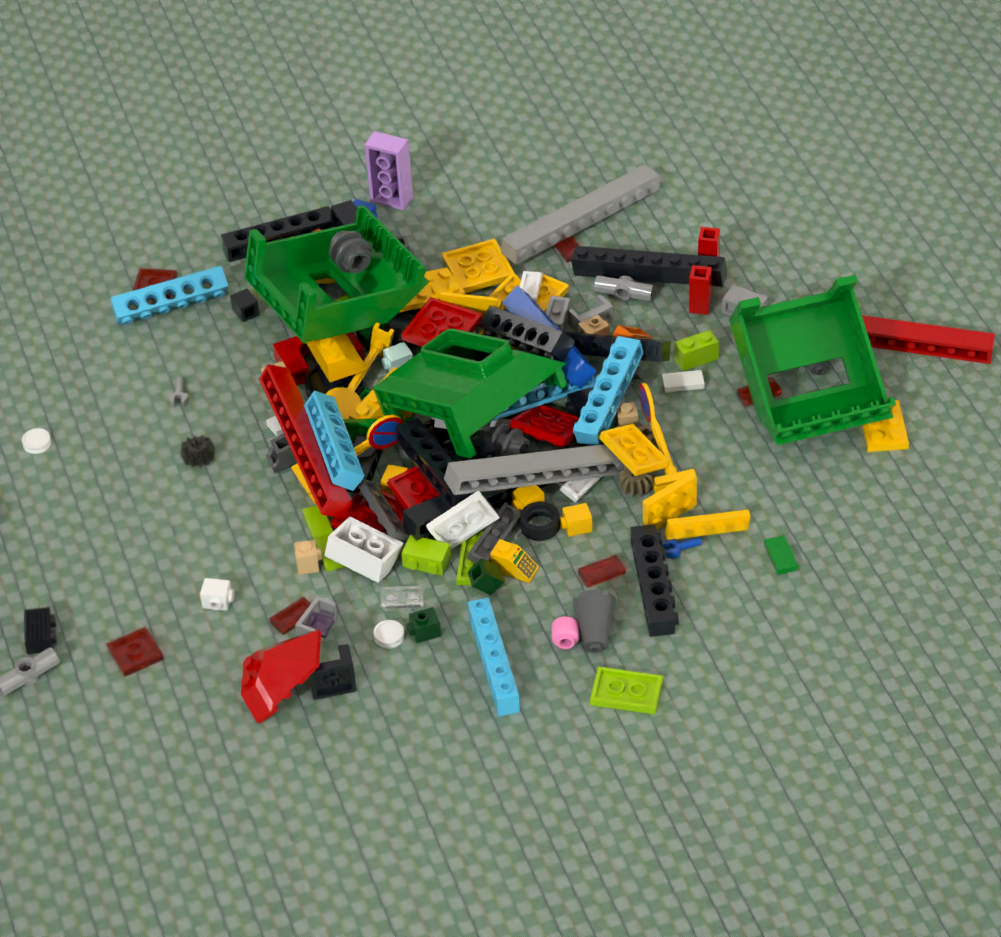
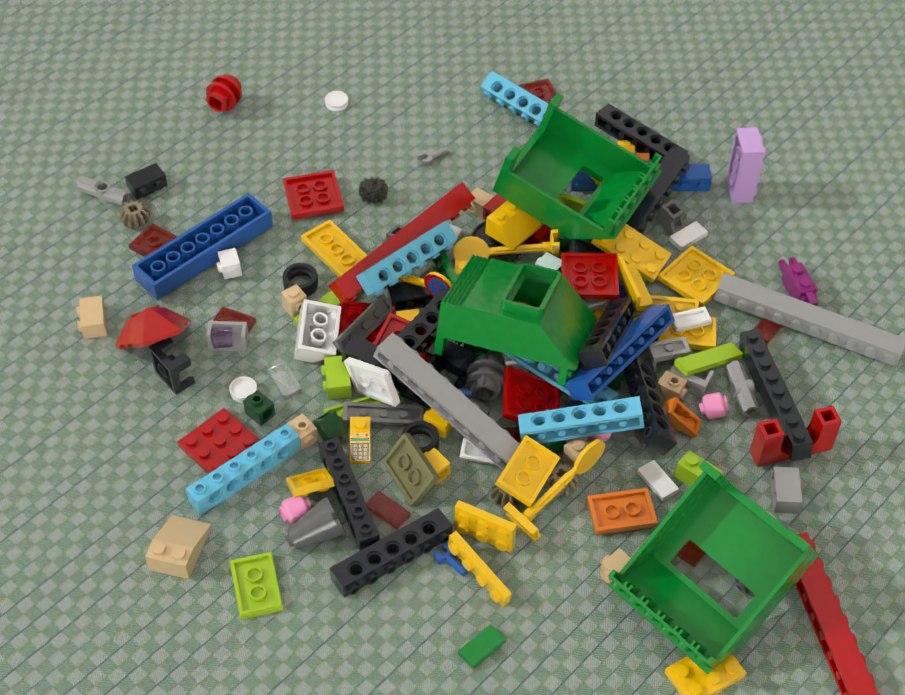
camera: 60 degrees right, 5 degrees up
(83, 653) = (134, 214): none -> dark tan gear
(165, 500) = (313, 194): none -> red plate
(179, 606) = (198, 247): none -> blue brick
(210, 726) = (92, 317): none -> tan brick
(258, 506) = (333, 247): none -> yellow plate
(275, 534) = (304, 270): none -> black tyre
(350, 251) = (607, 172): dark grey piece -> none
(424, 252) = (688, 236): none -> white tile
(446, 671) = (217, 441): none -> red plate
(472, 594) = (305, 430): none -> tan brick
(533, 203) = (798, 281): none -> magenta hinge
(542, 610) = (308, 482): none -> yellow plate
(551, 733) = (177, 546): none -> tan slope
(562, 587) = (348, 494): none -> black brick
(574, 533) = (410, 469): none -> olive plate
(581, 294) = (708, 359): none -> lime tile
(631, 312) = (714, 406): none -> bright pink head
(701, 414) = (621, 511): none -> orange plate
(757, 438) = (615, 561): none -> tan brick

